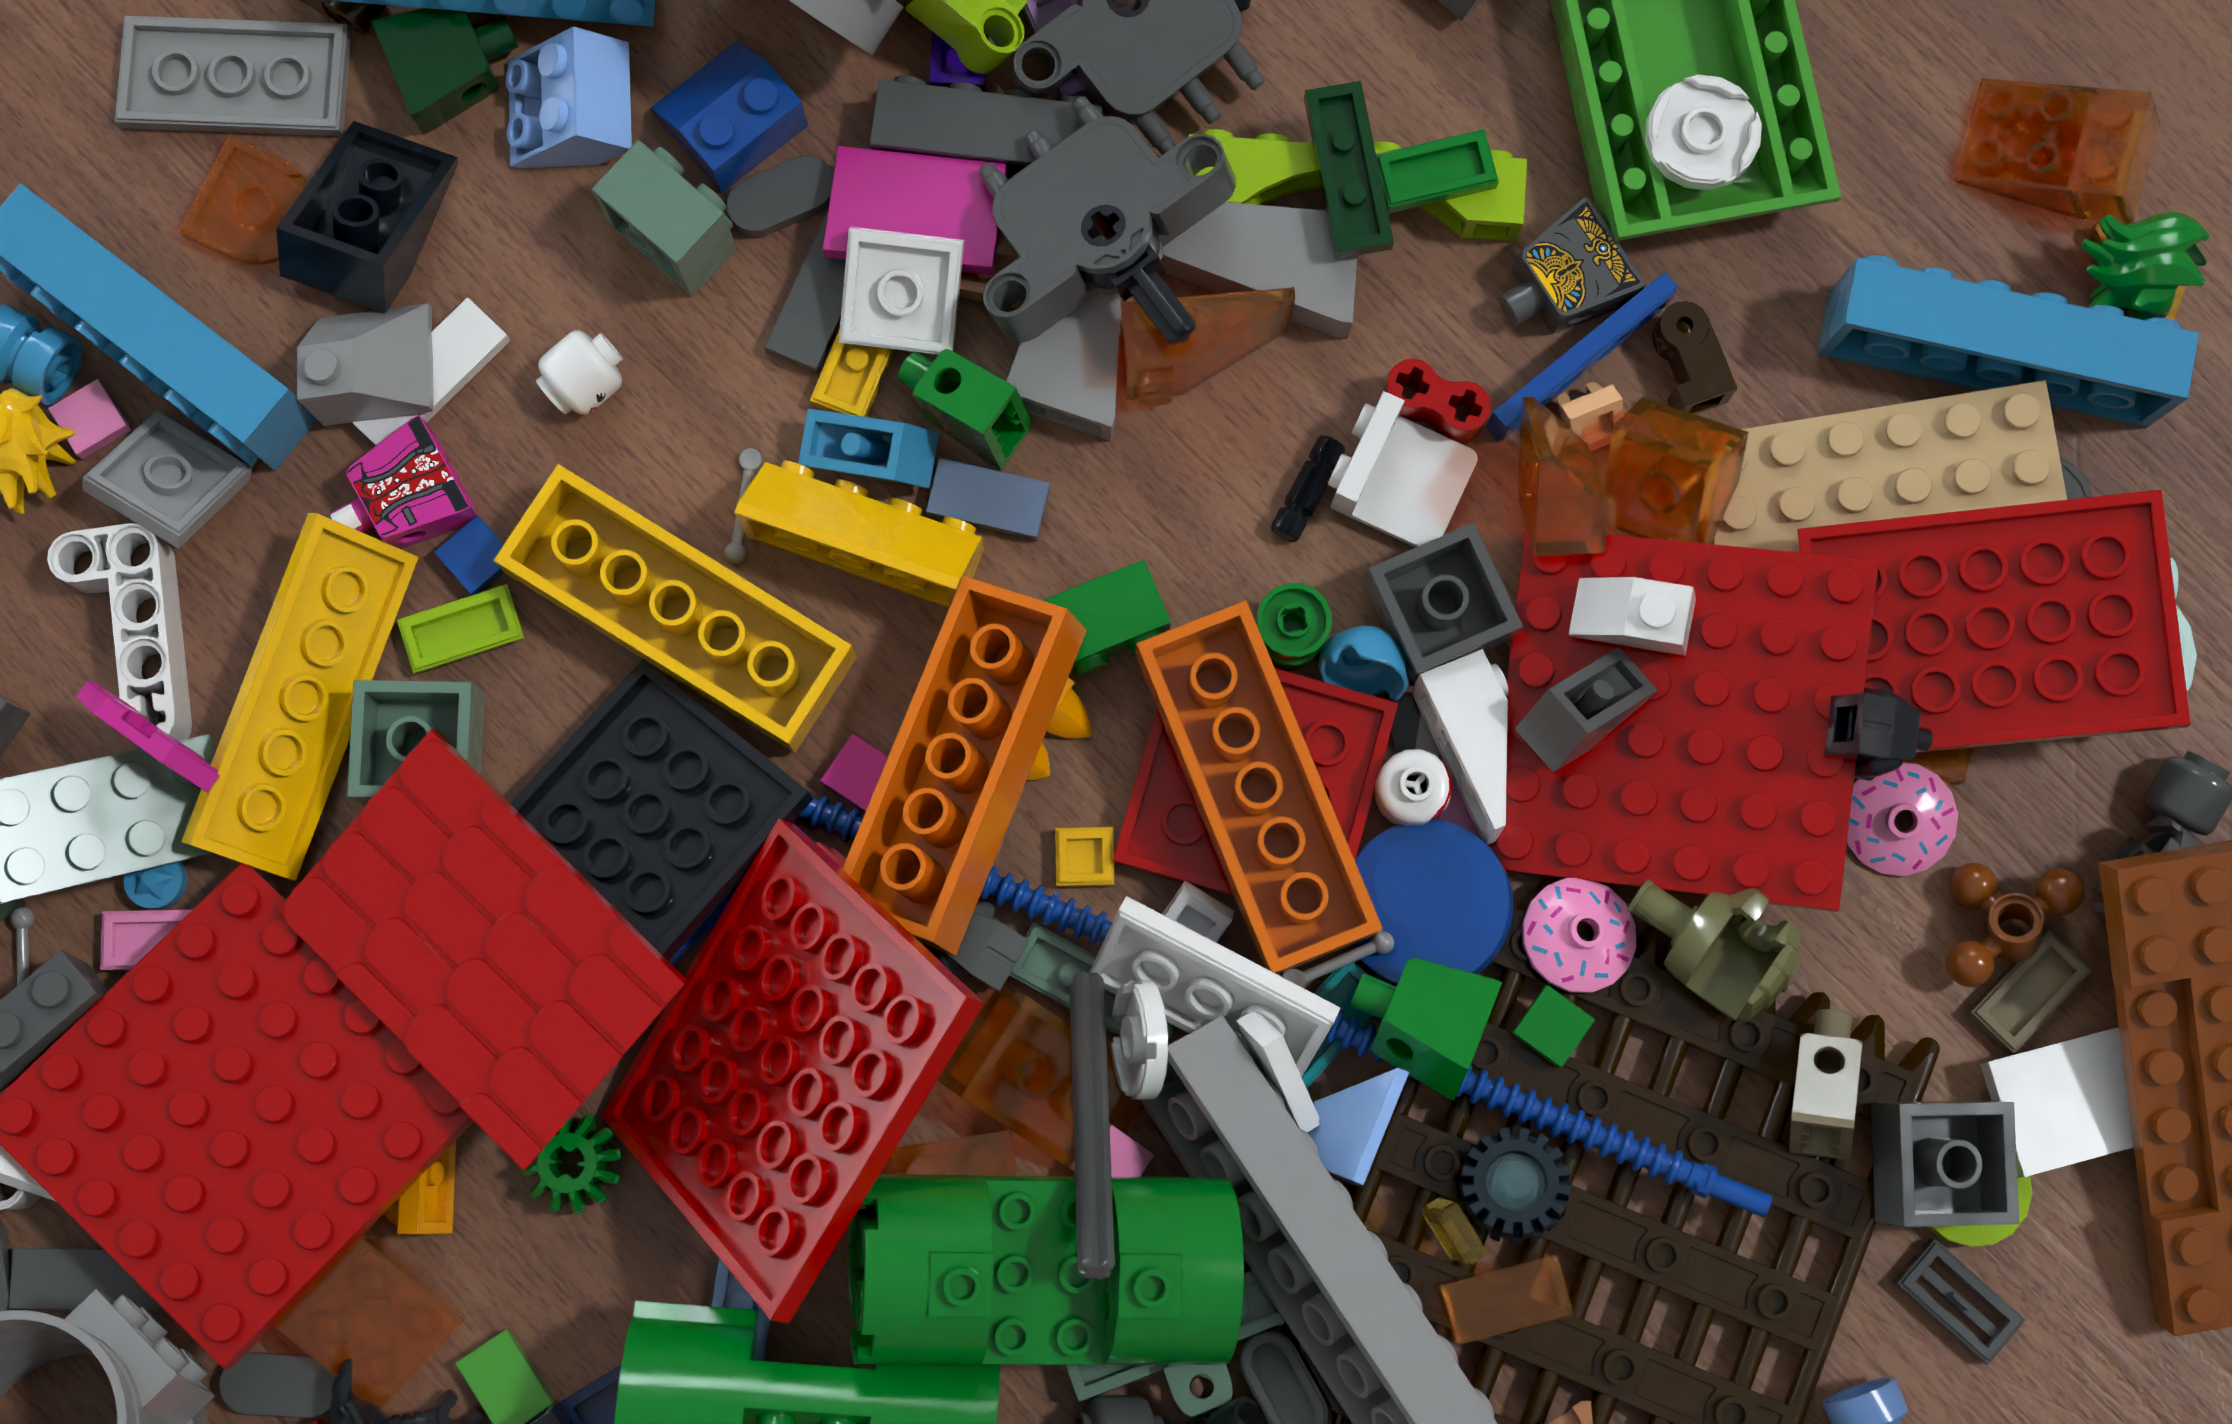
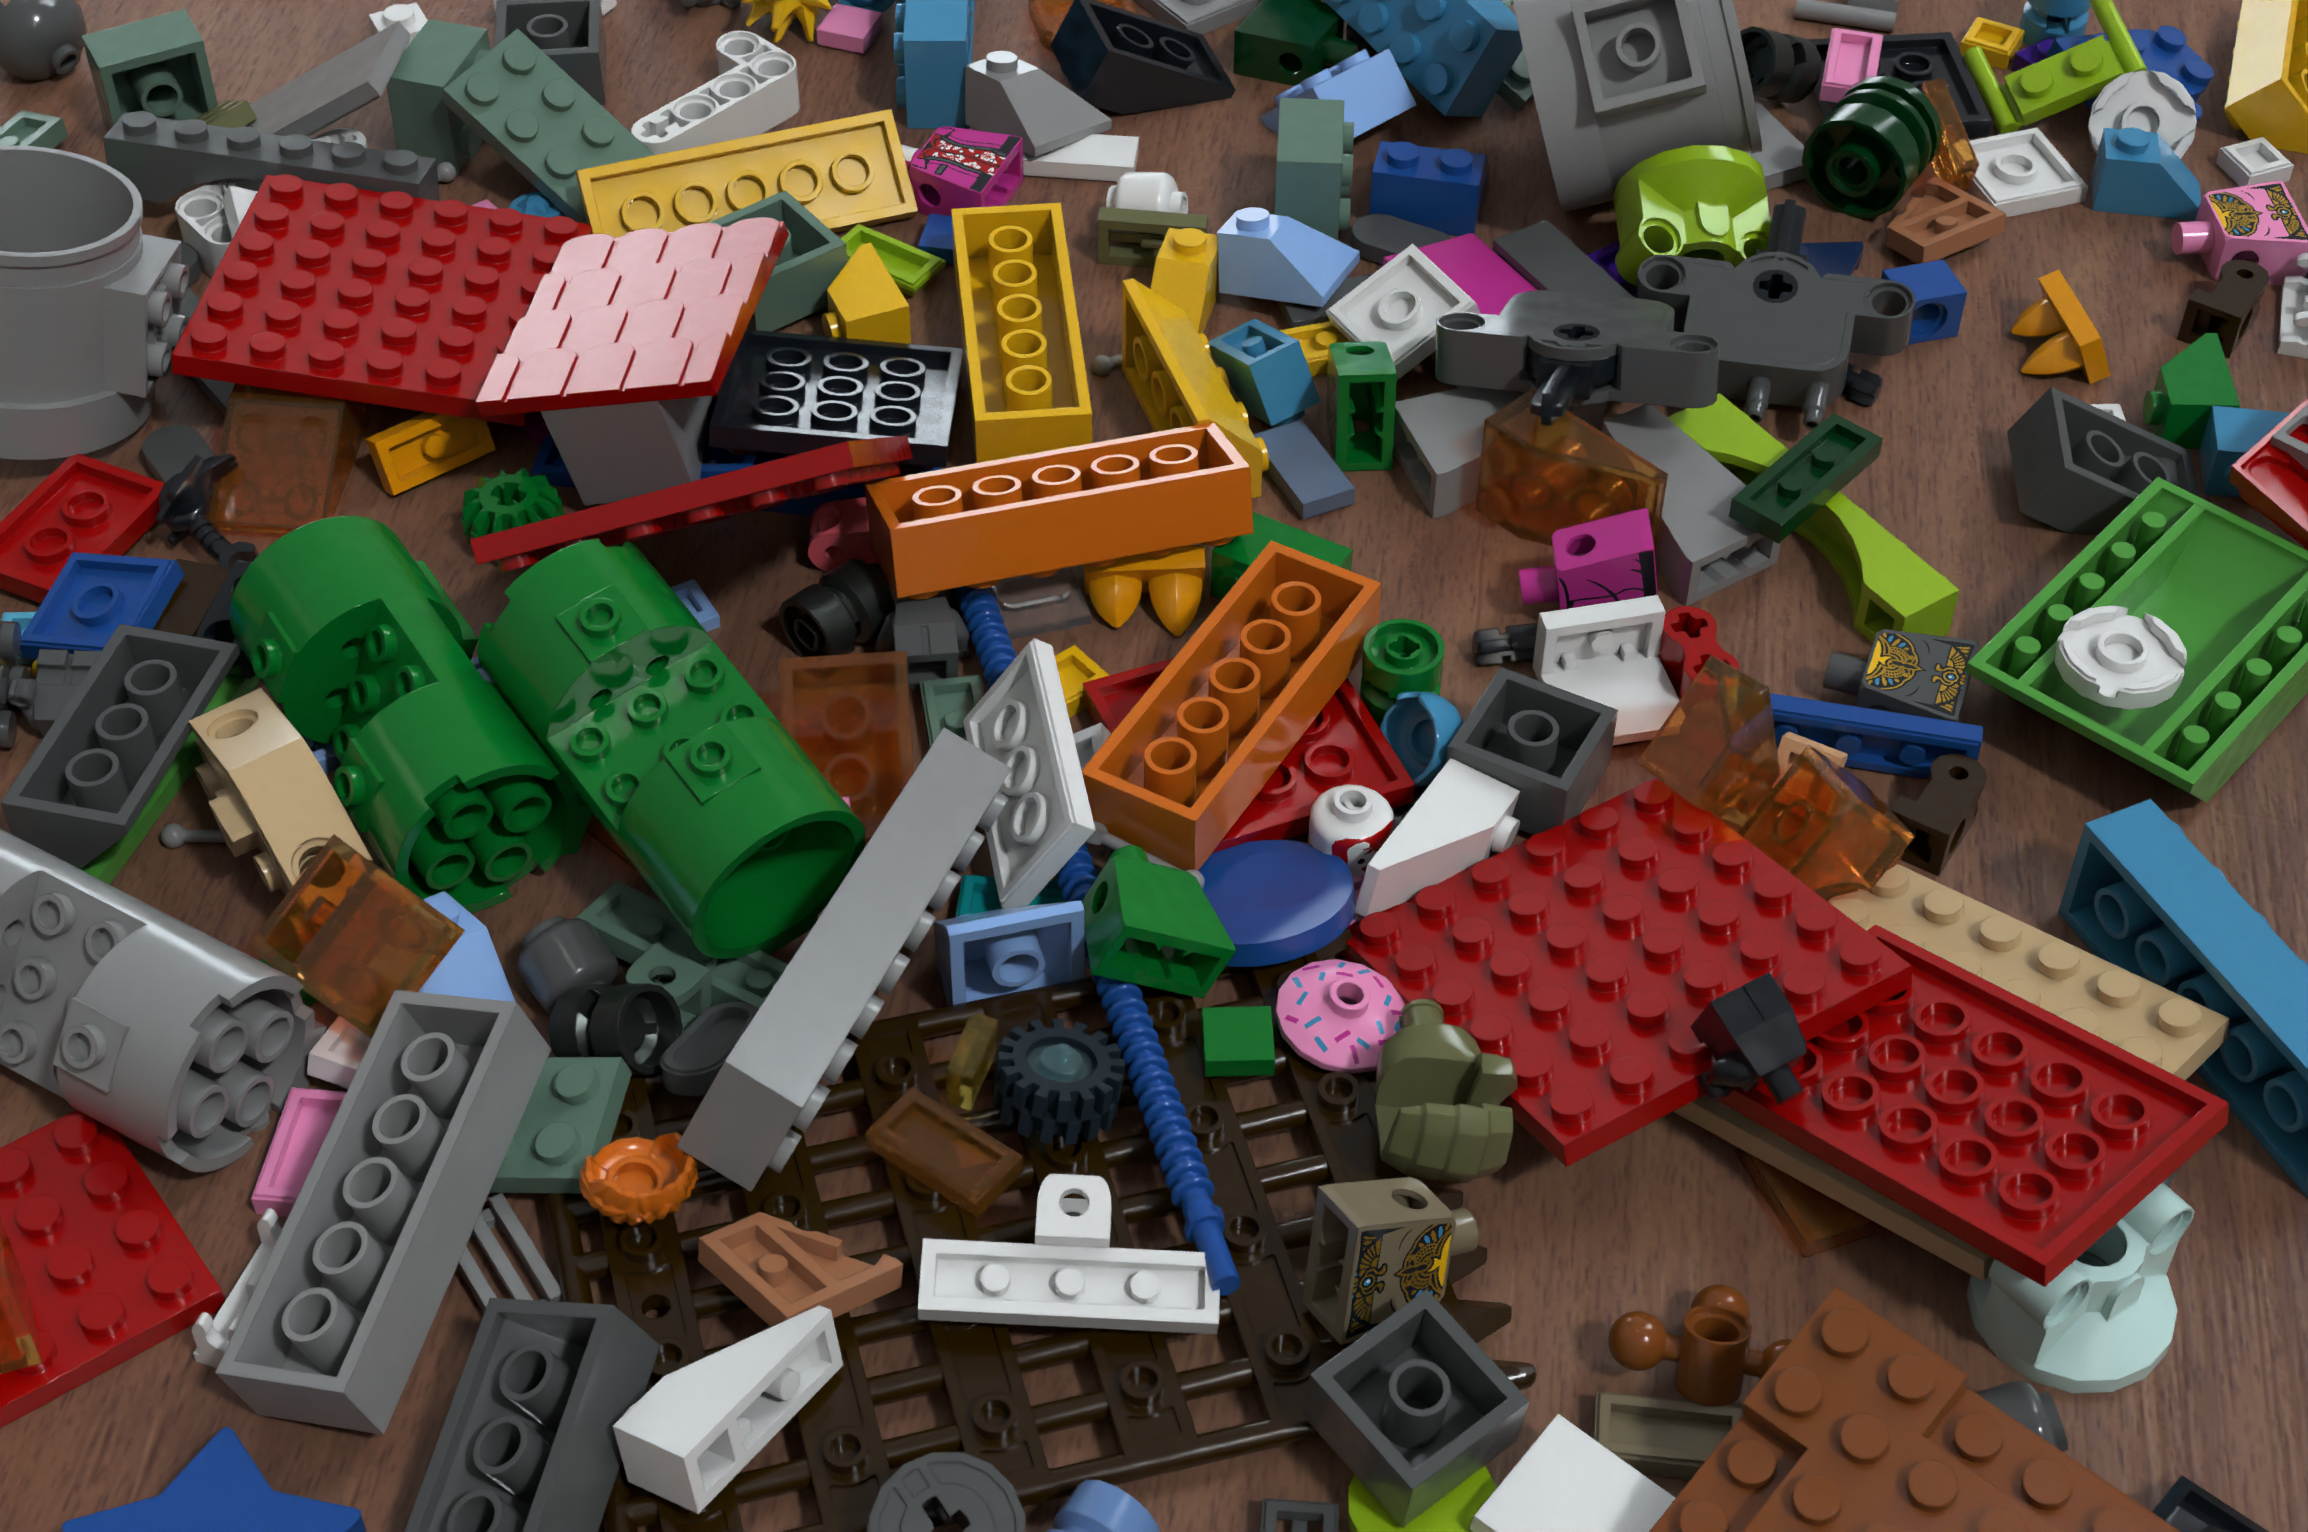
camera: 55 degrees right, 35 degrees down
(147, 736) = (638, 107): dark pink tile -> none
(167, 479) = (842, 64): light grey tile -> none
(528, 700) = (866, 302): none -> yellow slope
(623, 398) = (1138, 227): none -> olive tile
(714, 428) = (1188, 273): none -> yellow slope
(749, 320) = (1280, 259): none -> light blue slope
(1091, 1127) = (824, 704): dark grey axle -> none
(1143, 1041) = (961, 712): white tile -> none
(1277, 1064) = (999, 844): white tile -> none
(1316, 377) = (1596, 563): none -> dark pink torso
(1437, 171) = (1875, 535): green tile -> none
(1584, 709) = (1541, 862): dark grey slope -> none
(1634, 613) = (1670, 846): white slope -> none
(1679, 1300) = (1068, 1273): none -> white plate
(1872, 816) = (1724, 1242): bright pink dish -> none

